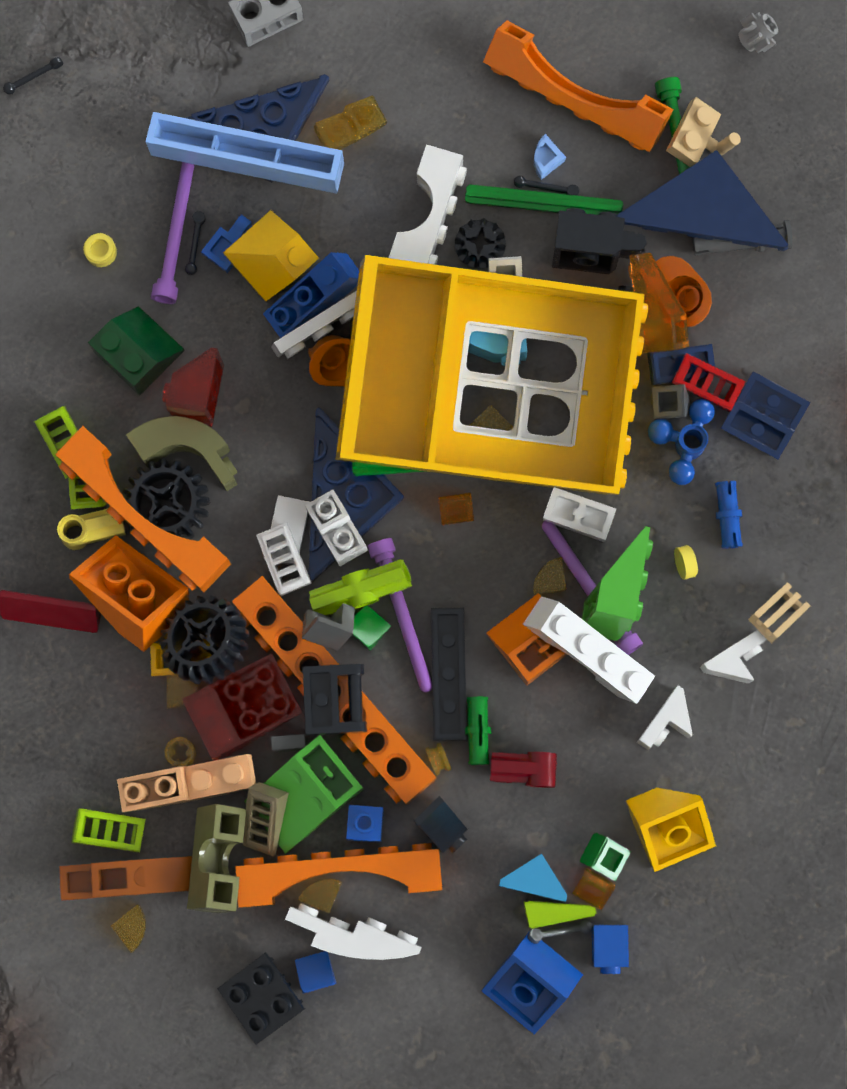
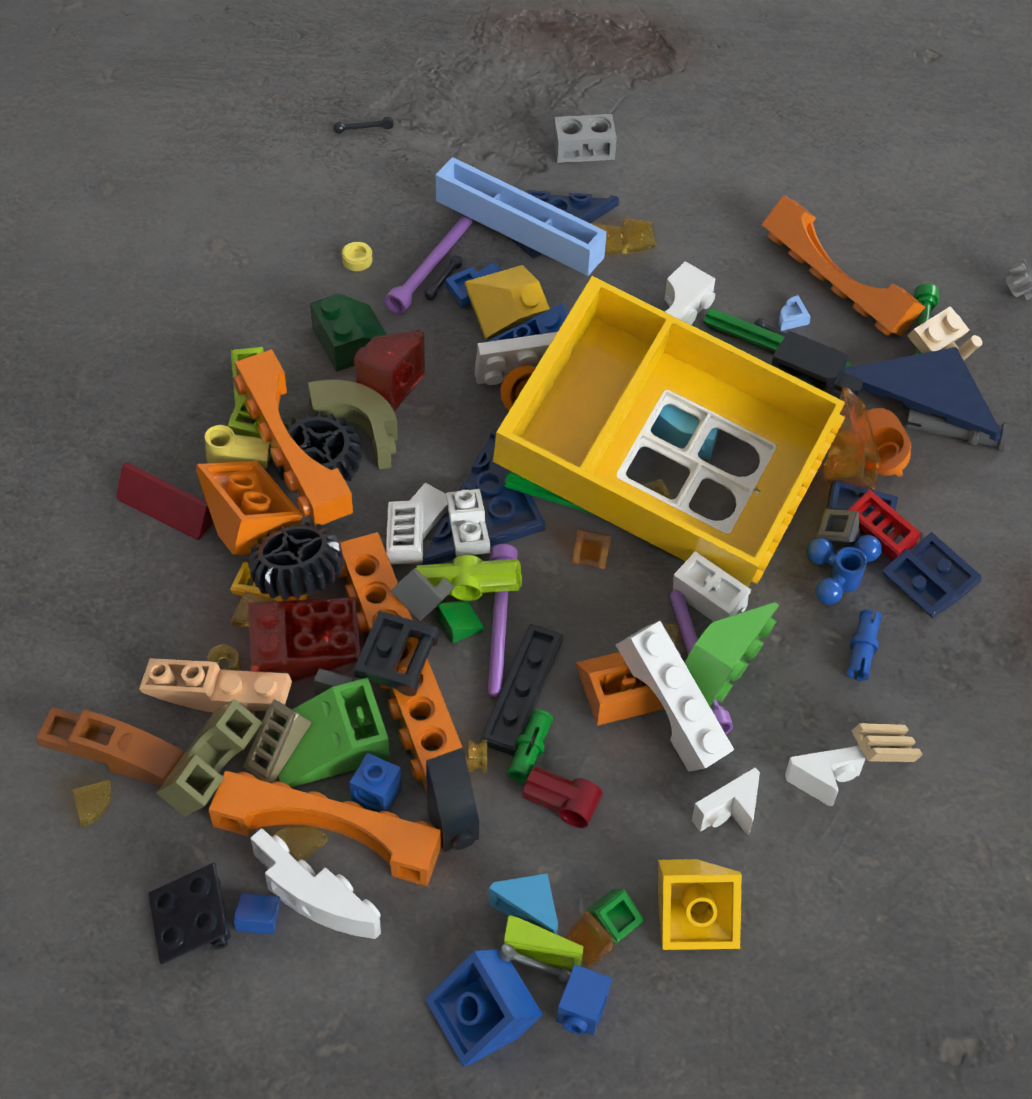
camera: 15 degrees right, 25 degrees down
(79, 827) = (105, 682): lime slope -> none
(686, 562) = (804, 669): light yellow tile -> none

